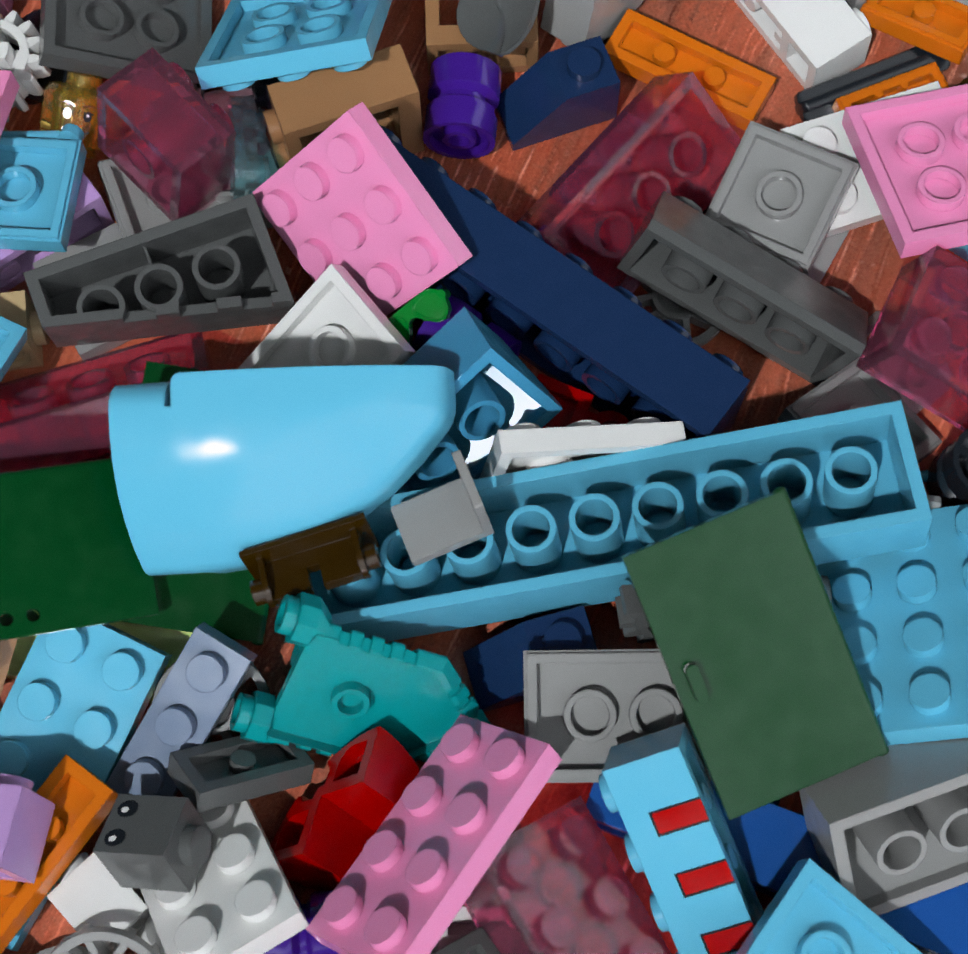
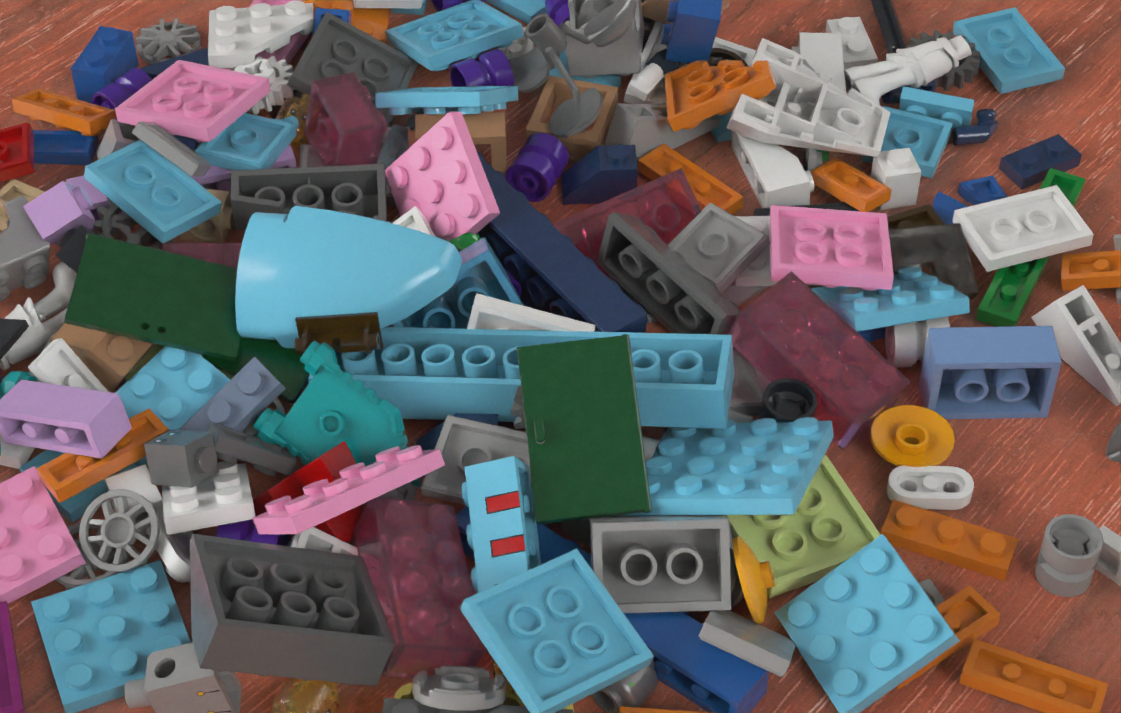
camera: 15 degrees right, 25 degrees down
(443, 517) = (429, 335): light grey bracket -> none

